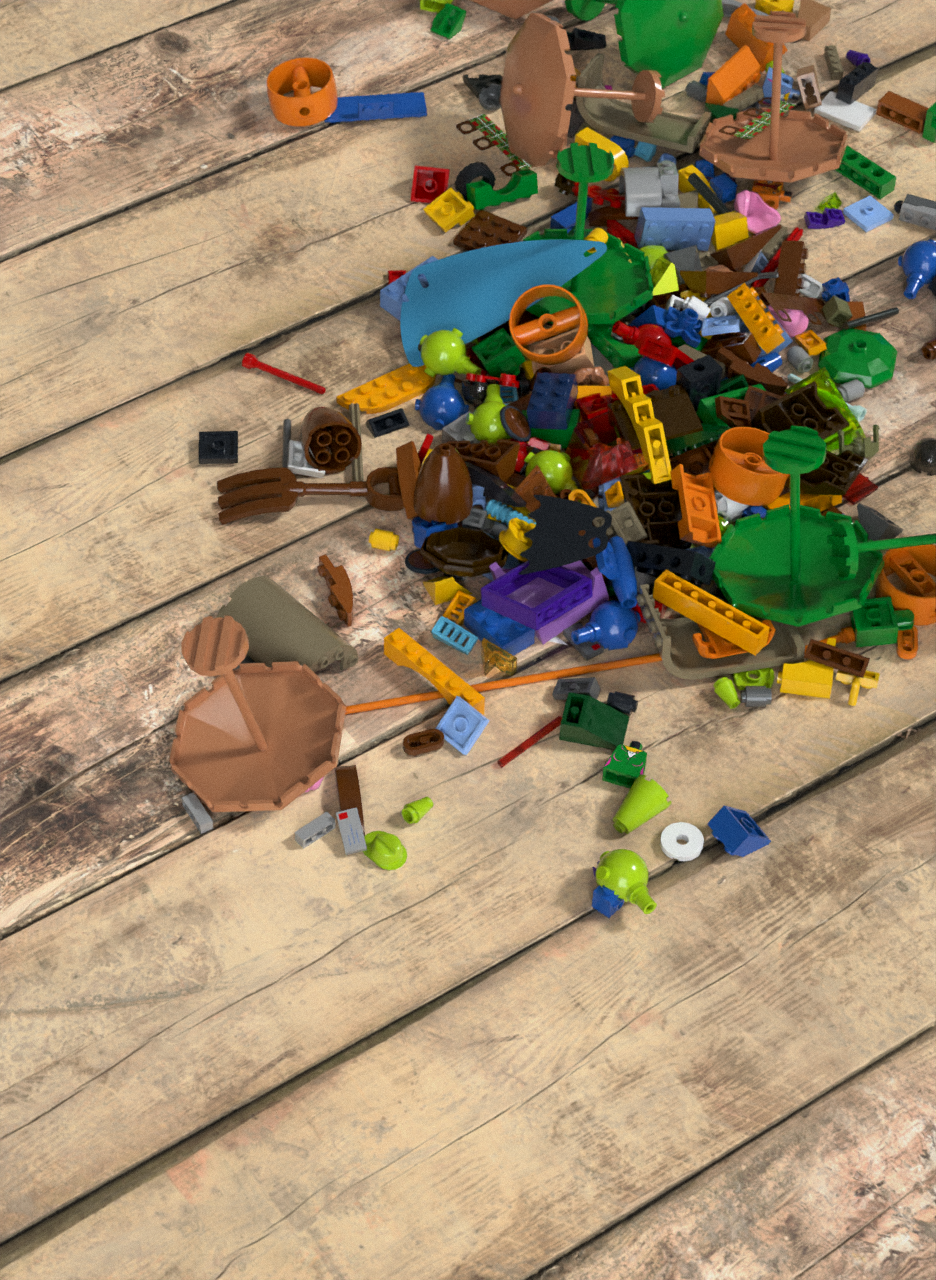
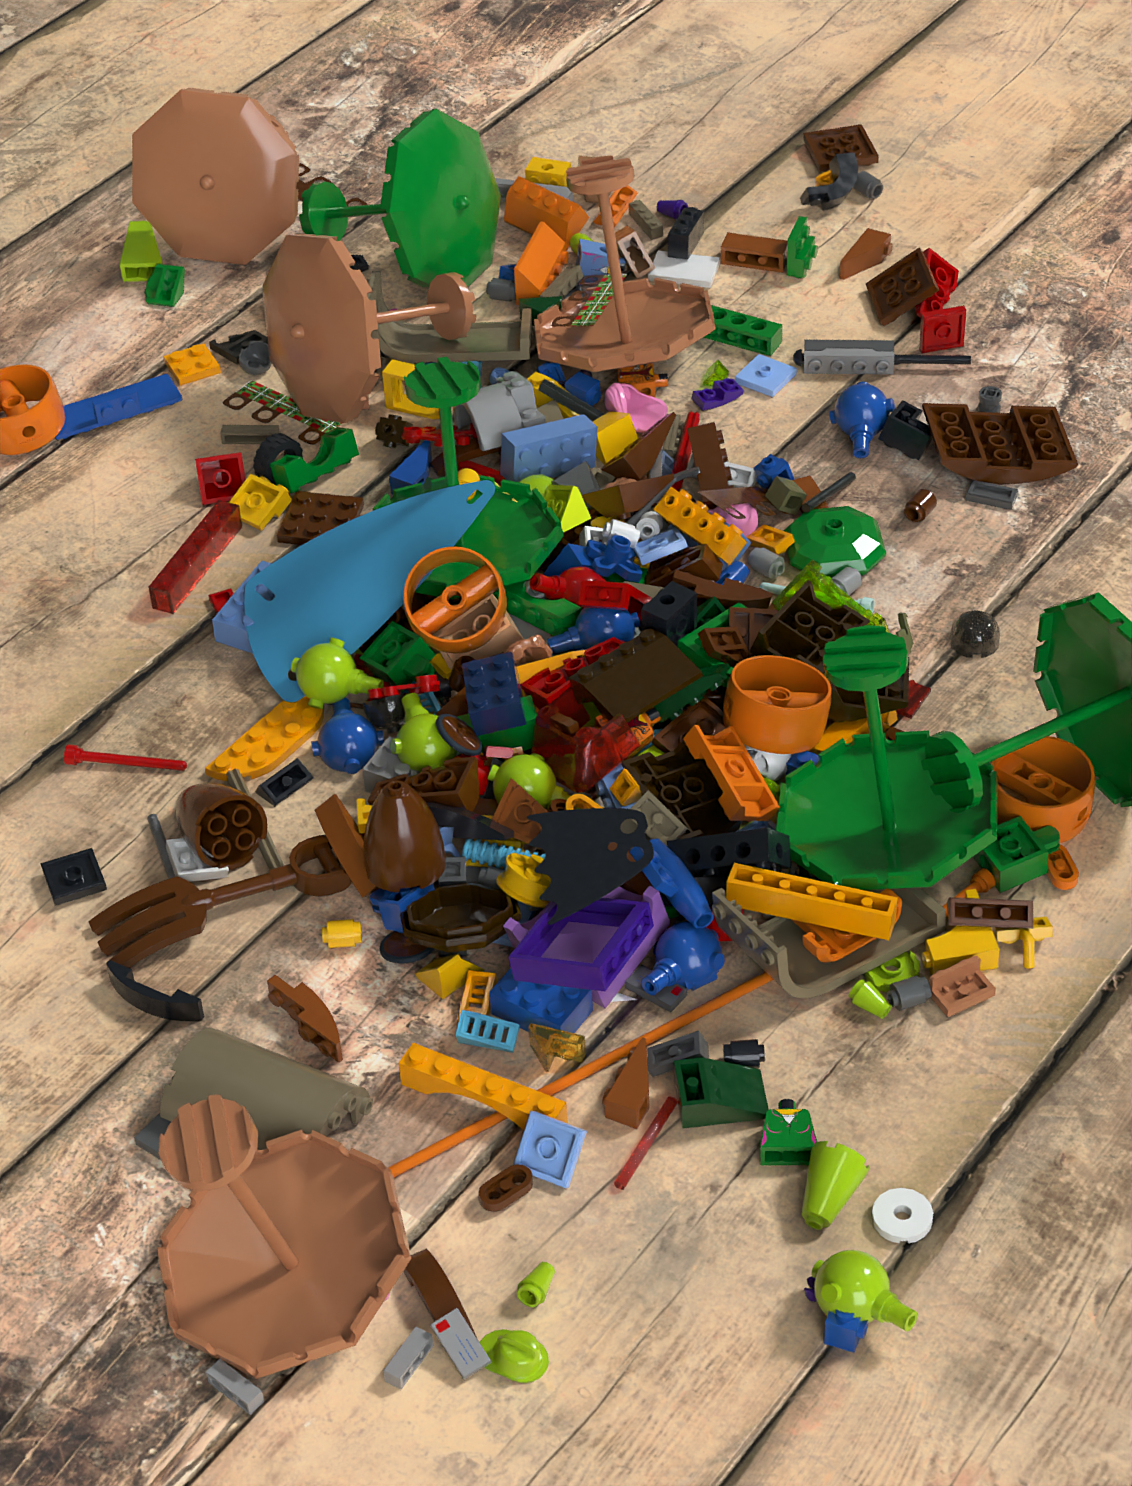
camera: 15 degrees left, 5 degrees down
(254, 557) = (178, 1007): none -> black slope
(389, 239) = (195, 557): none -> clear red brick
(425, 447) = (351, 796): red tile -> none
(444, 89) = (192, 364): none -> light orange plate
(463, 155) = (247, 433): none -> dark tan piece
(533, 705) = (629, 1096): none -> dark orange slope
(649, 430) = (618, 670): yellow arch -> none
(737, 831) = (969, 1179): blue slope -> none
(794, 702) = (960, 986): none -> nougat bracket
(816, 45) = (619, 204): none -> orange slope
(877, 525) = (970, 735): dark grey slope -> none

